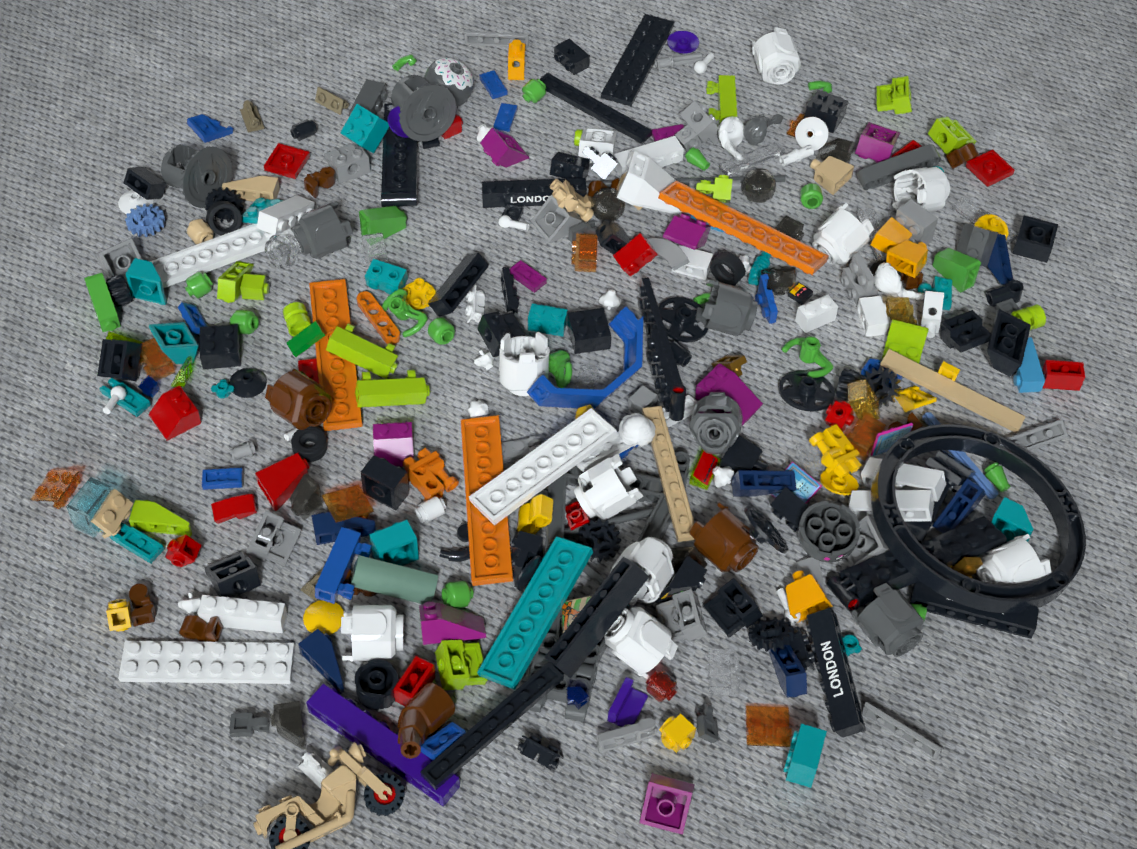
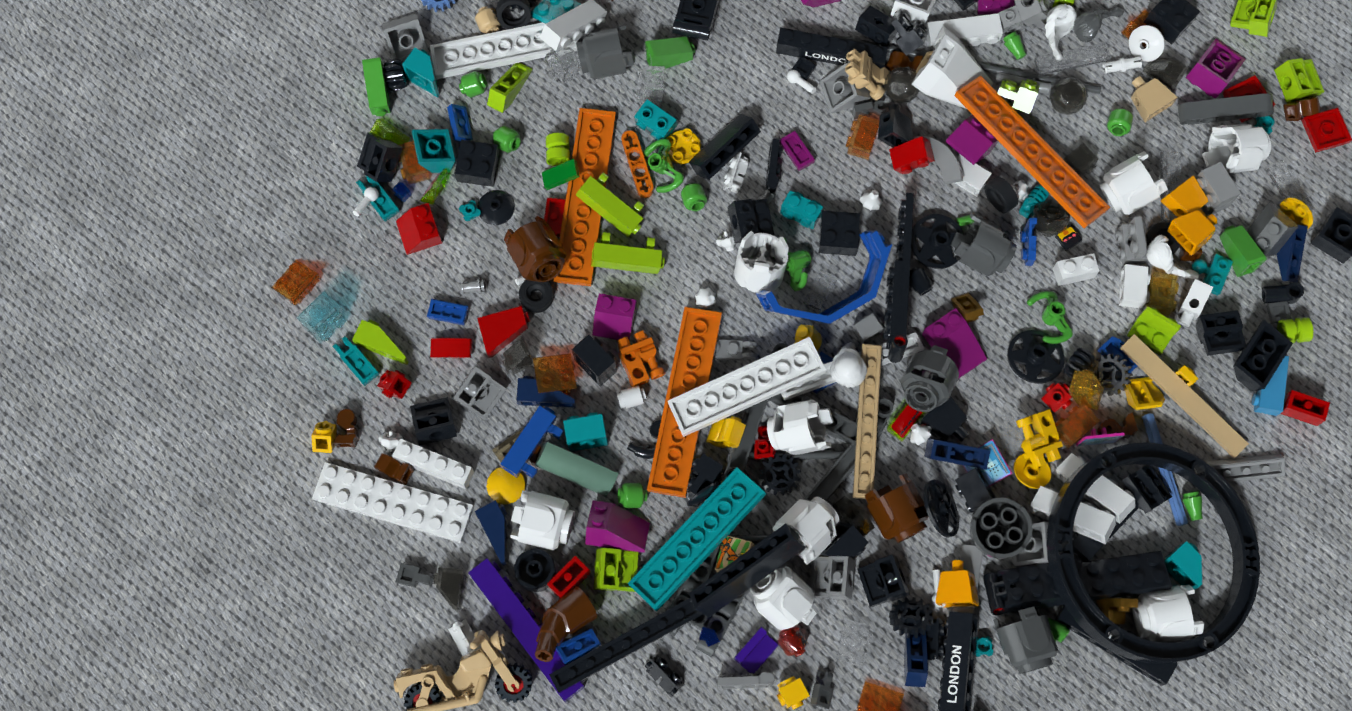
camera: 20 degrees right, 20 degrees up
(111, 513) = (337, 332): tan bracket -> none
(254, 287) = (525, 99): lime brick -> none
(960, 507) = (1141, 530): dark blue slope -> none

